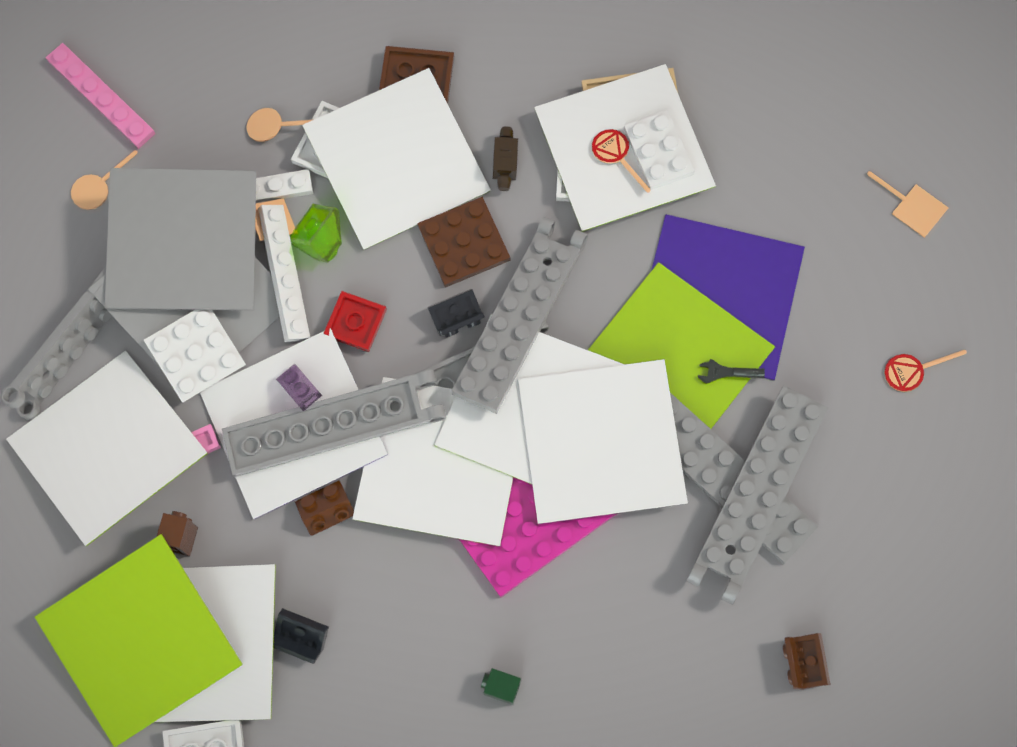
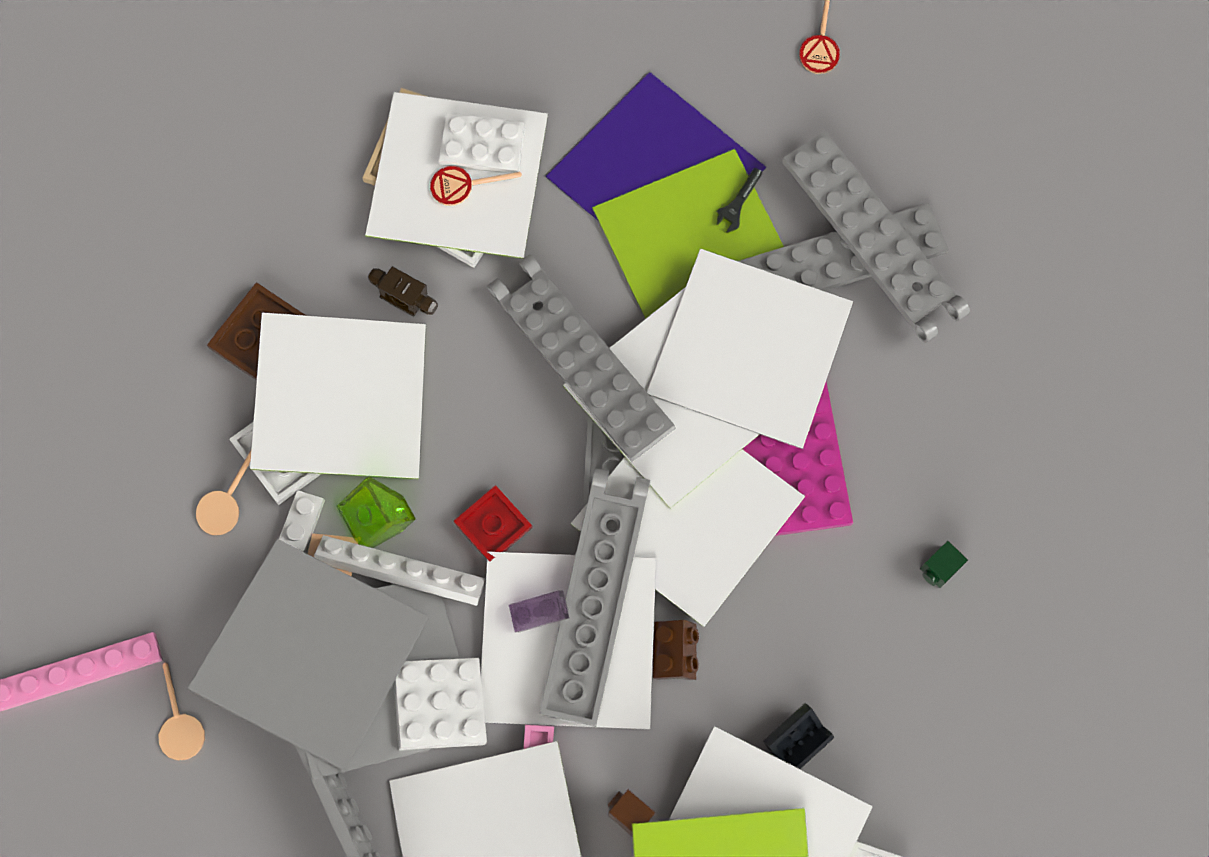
camera: 70 degrees left, 0 degrees up
(456, 313) = (541, 420): black bracket -> none
(463, 242) = (466, 377): reddish brown plate -> none
(806, 661) = (1050, 277): reddish brown bracket -> none

